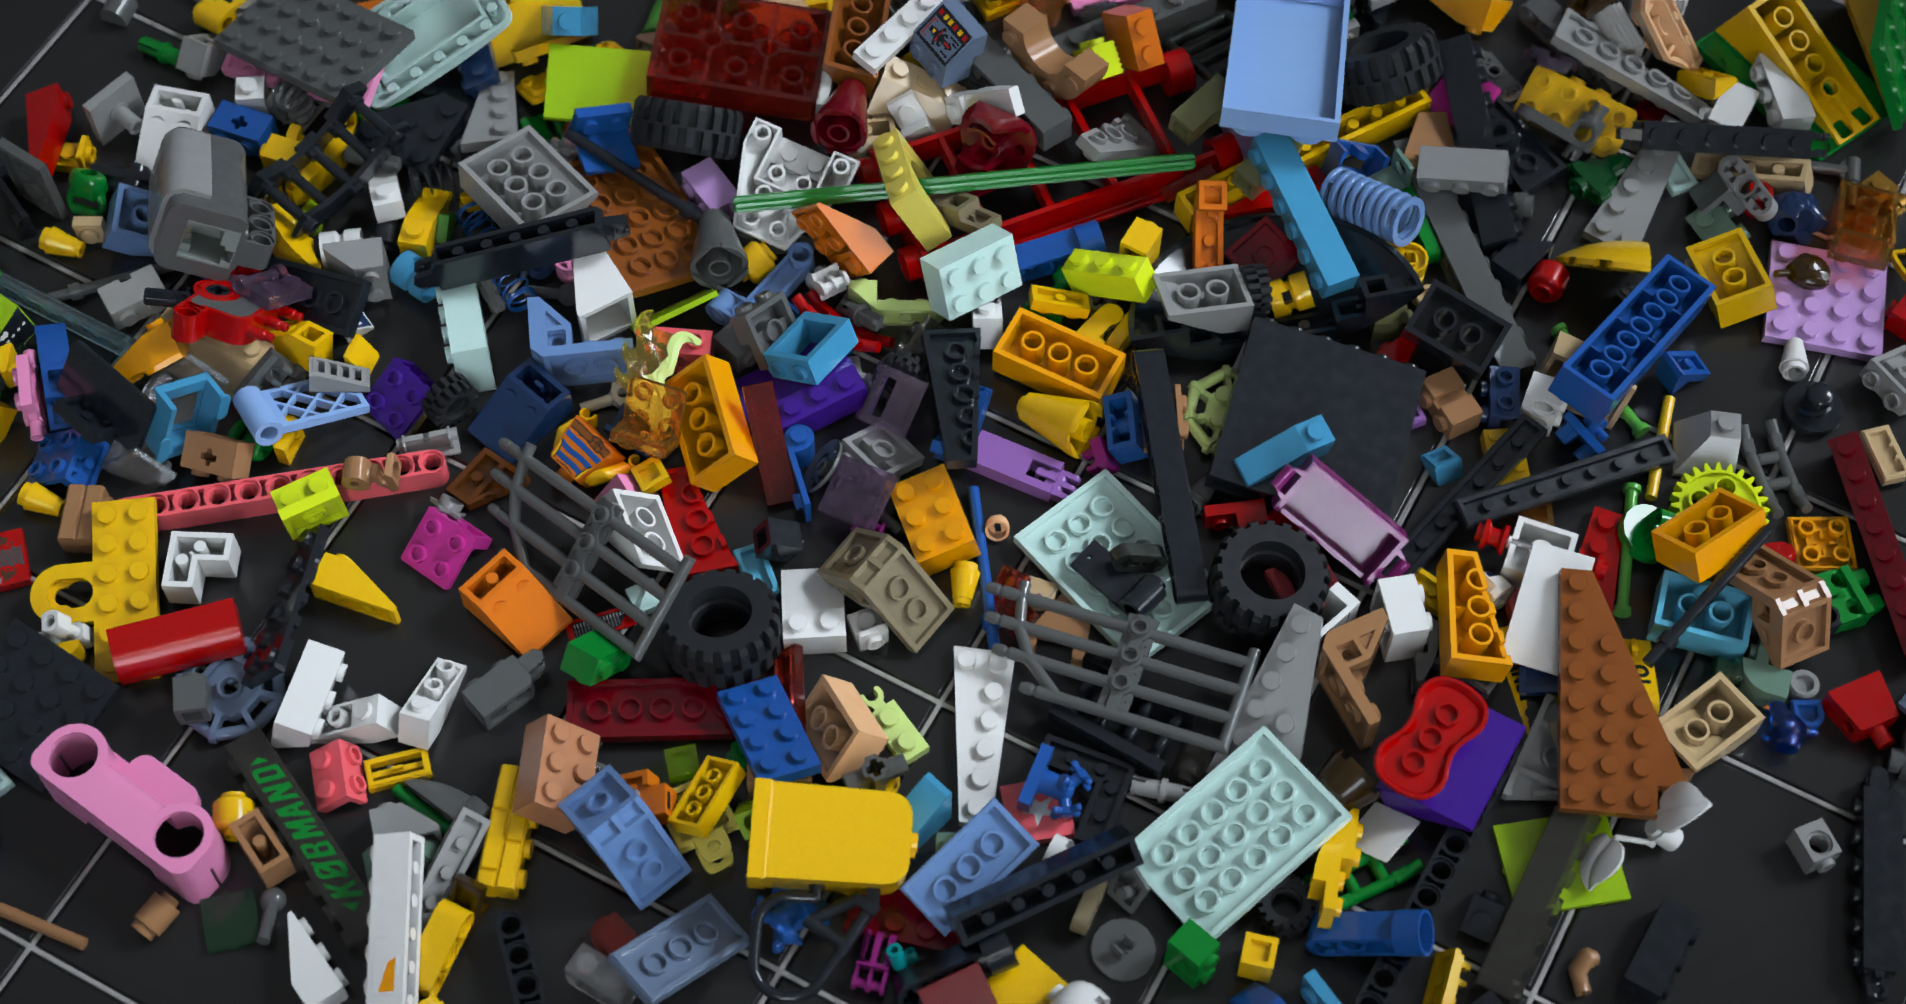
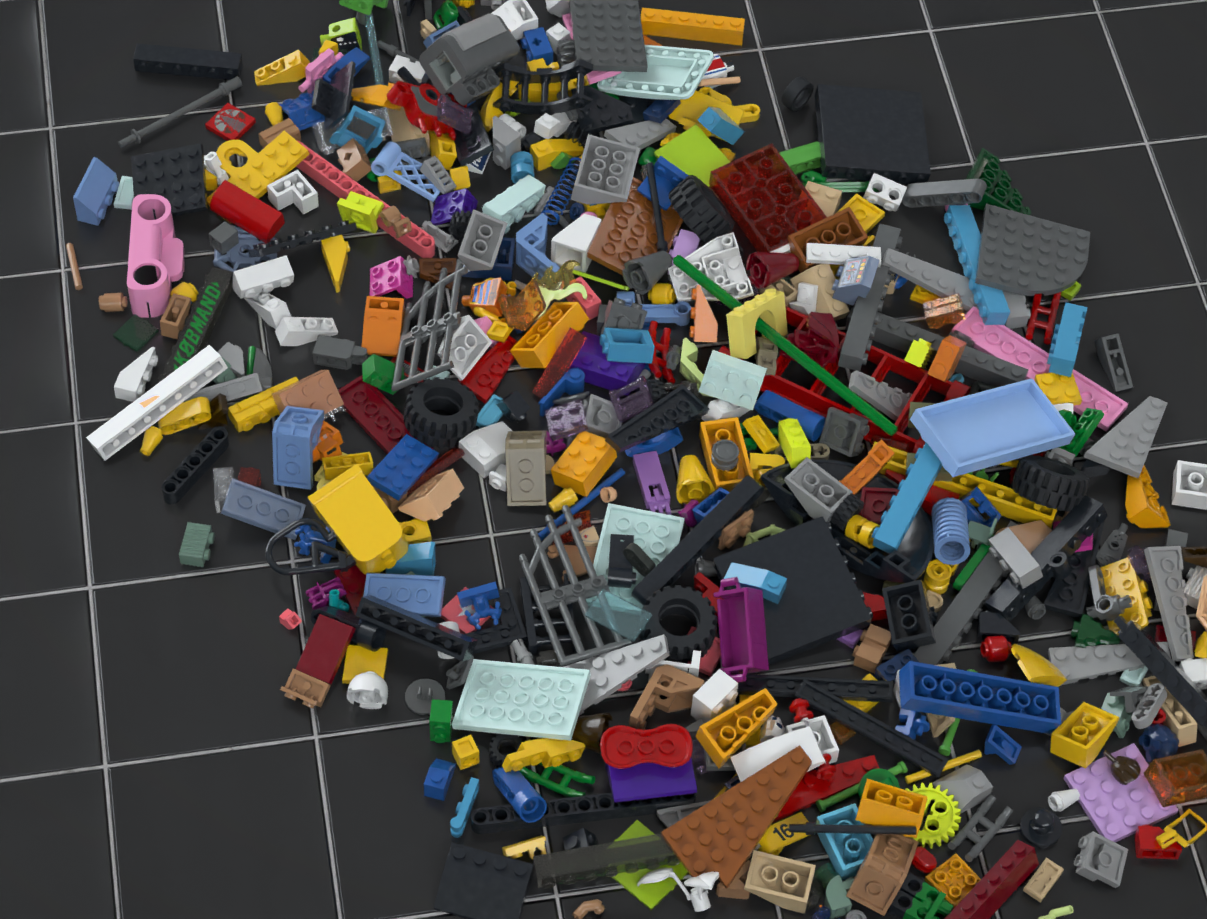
camera: 50 degrees right, 5 degrees down
(57, 242) = (411, 26): yellow cone -> none
(272, 901) = (157, 341): dark grey bar -> none
(337, 775) = (239, 321): coral bracket -> none
(391, 782) = (252, 340): yellow tile -> none
(504, 395) = (481, 241): none -> light grey slope
(519, 248) = (564, 190): black hinge -> none
(681, 763) = (362, 445): clear neon green plate -> none
(827, 280) = (678, 330): white arm -> none
(888, 768) = (417, 524): dark grey axle -> none
(898, 728) = (458, 524): yellowish green plate -> none
(981, 711) = (491, 559): white wing -> none
(1002, 97) = (842, 319): white slope -> none
(1038, 54) = (892, 330): medium nougat brick -> none
(1070, 357) = (725, 454): none -> dark grey wheel
(1087, 908) = (434, 664): dark tan beam -> none
(1122, 207) = (844, 432): none -> dark grey plate
(1142, 240) = (823, 443): yellow brick -> none
(1214, 635) = (618, 615): none -> clear light blue piece
(1384, 831) = (587, 768): white sticker -> none
(1443, 465) = (833, 668): dark azure slope -> none

